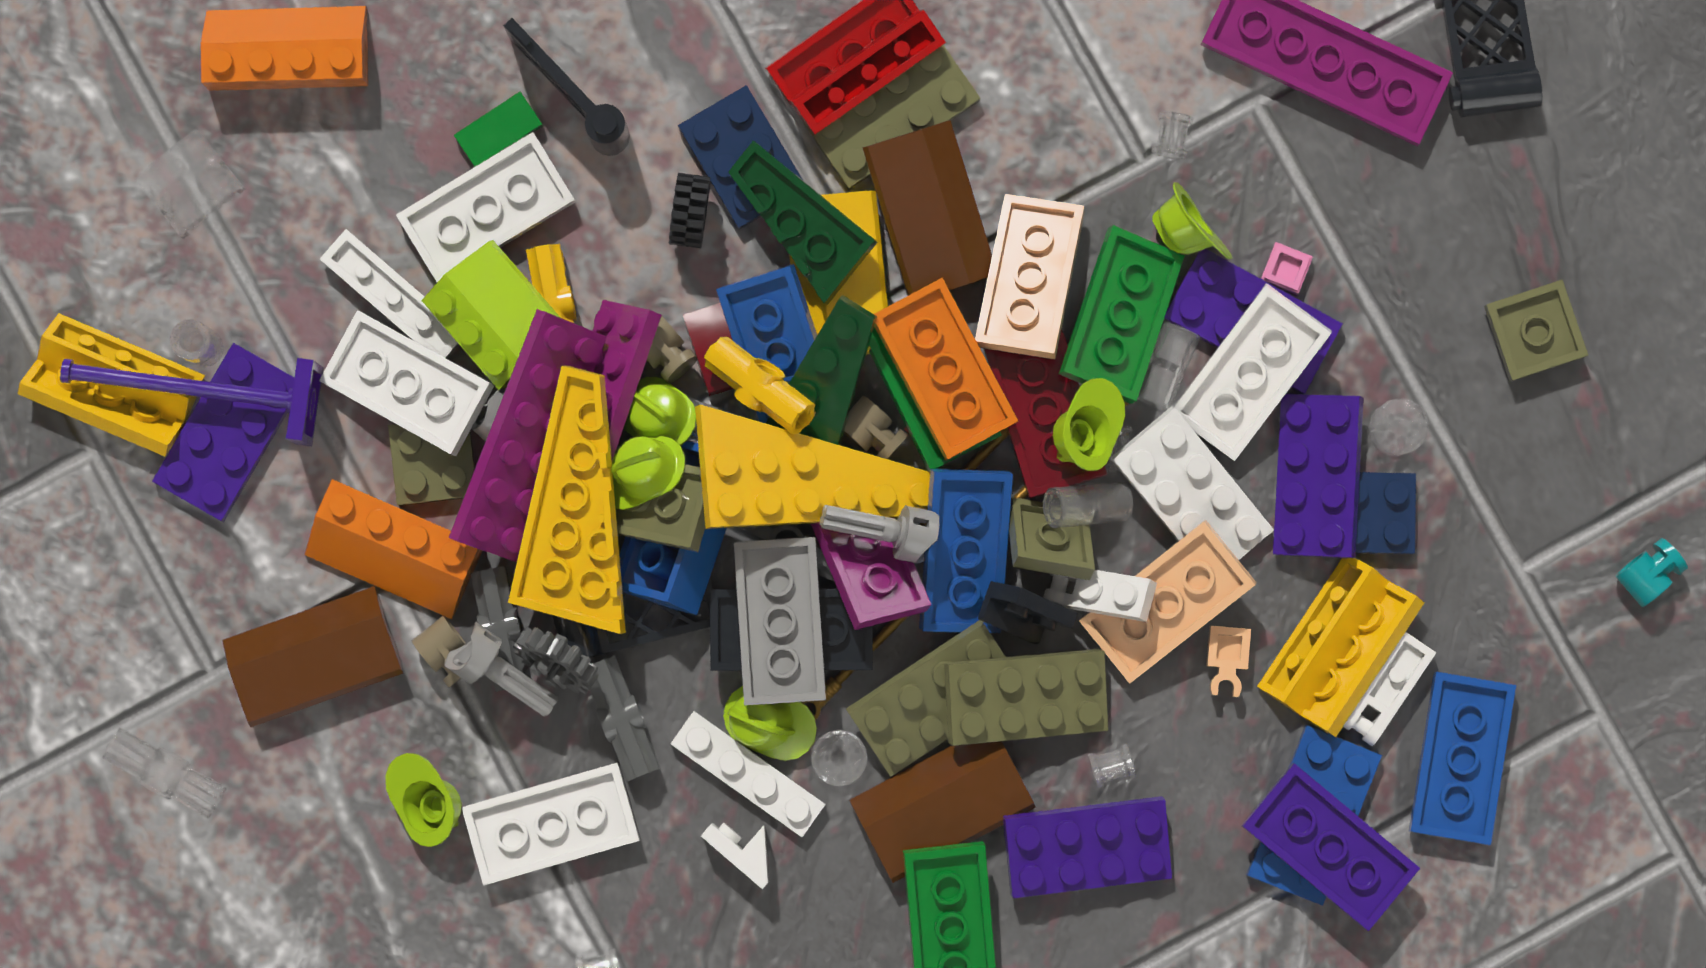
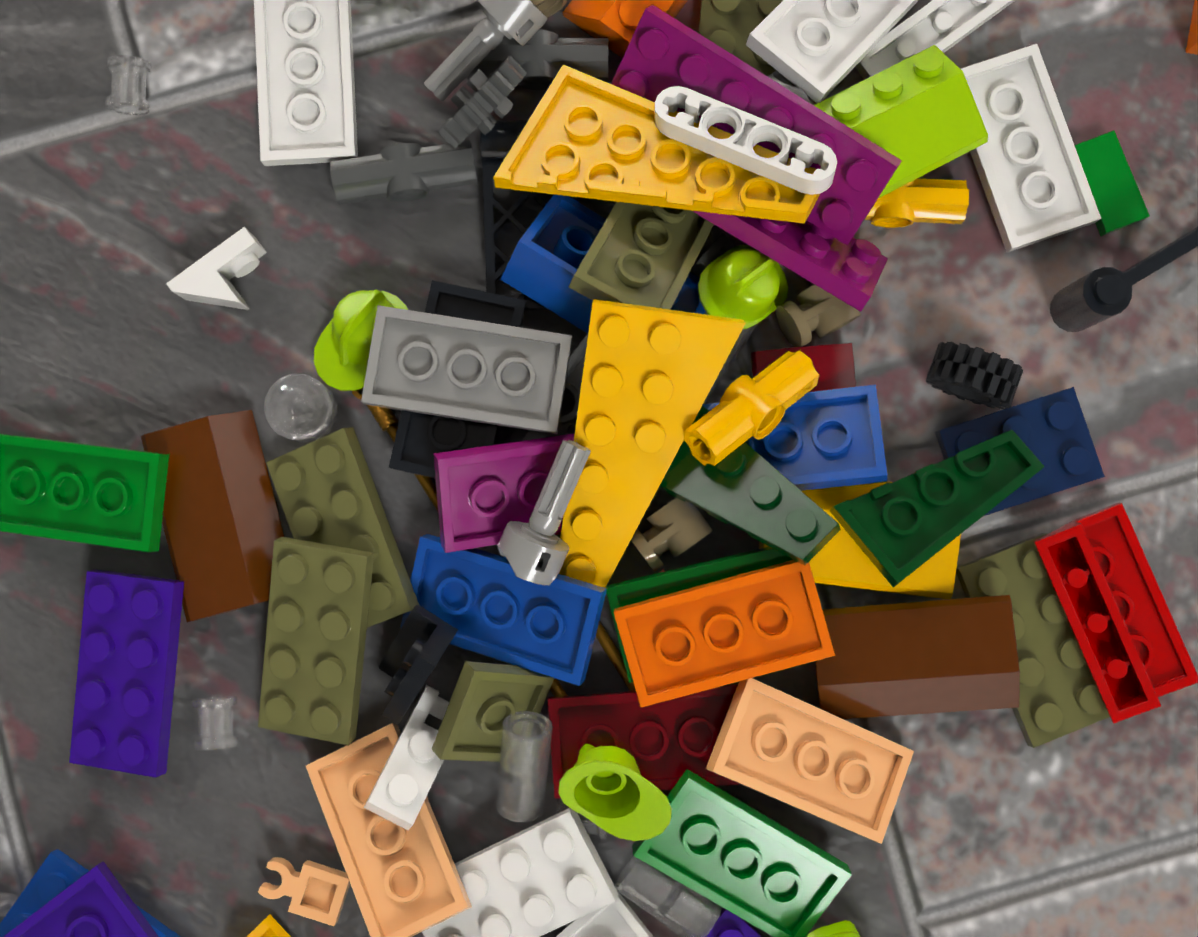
camera: 100 degrees right, 0 degrees up
(555, 440) = (748, 132): none -> white beam
(646, 470) = (681, 250): lime piece -> none
(748, 774) = (308, 303): white plate -> none

